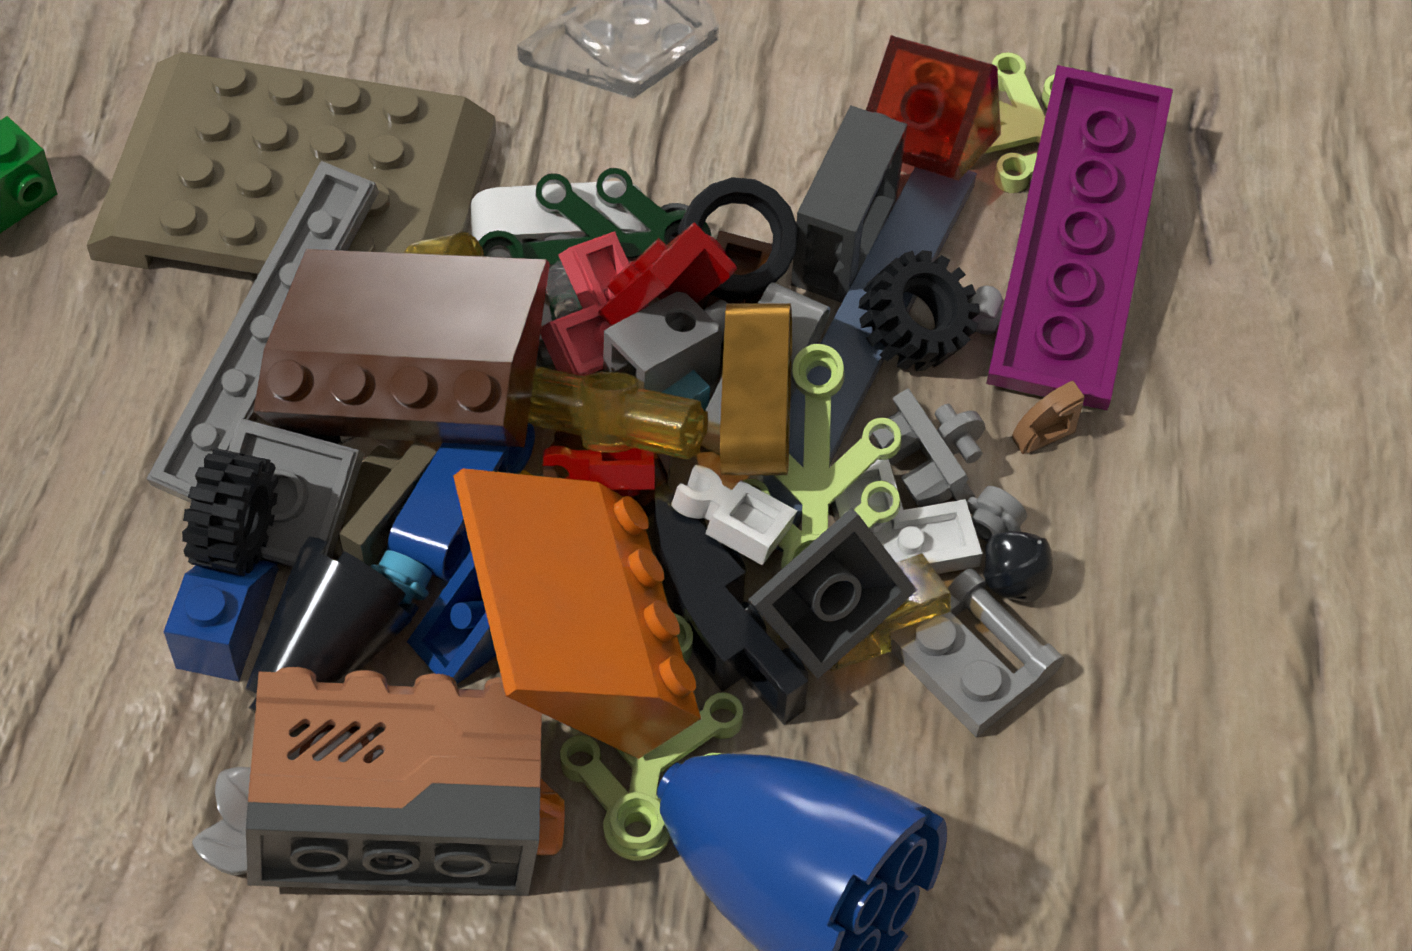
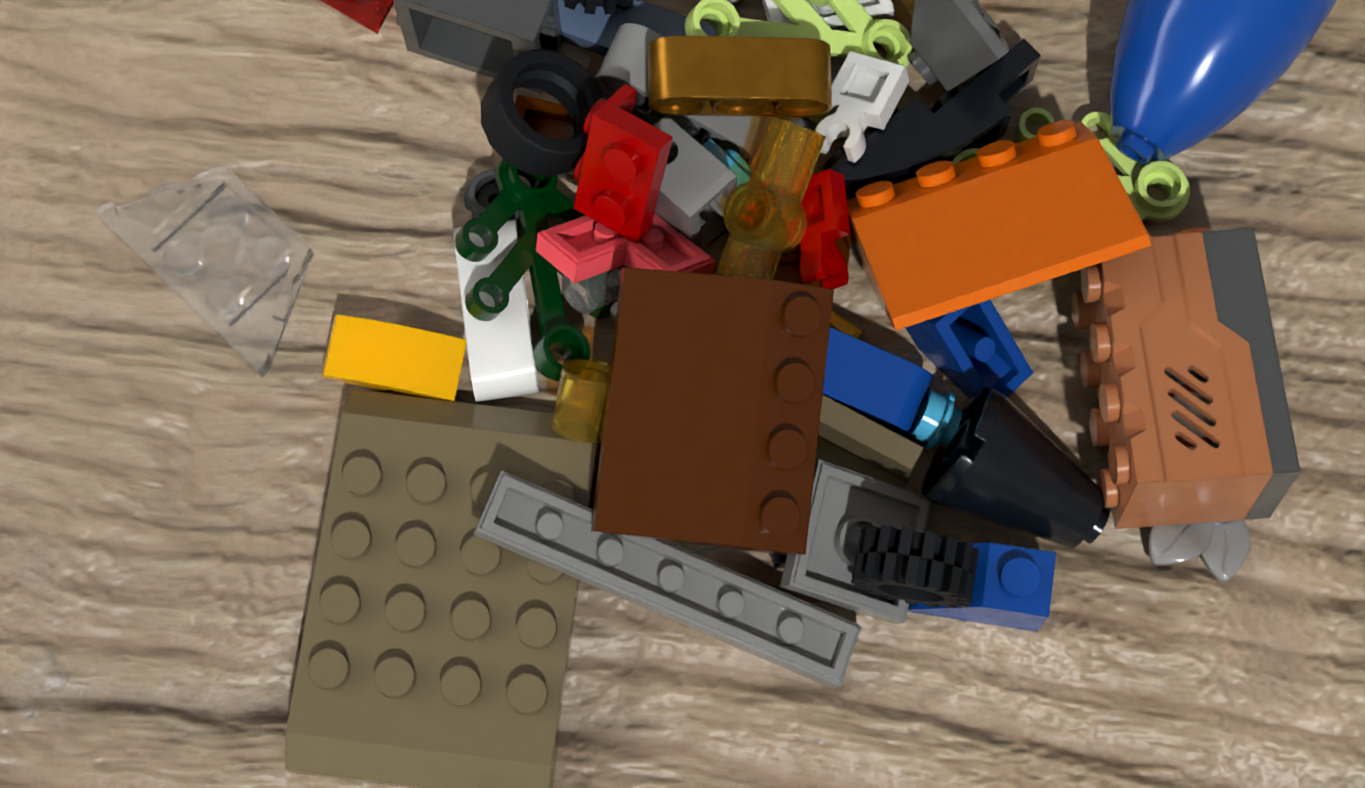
camera: 90 degrees left, 15 degrees up
(519, 141) = (394, 358): none -> yellow slope

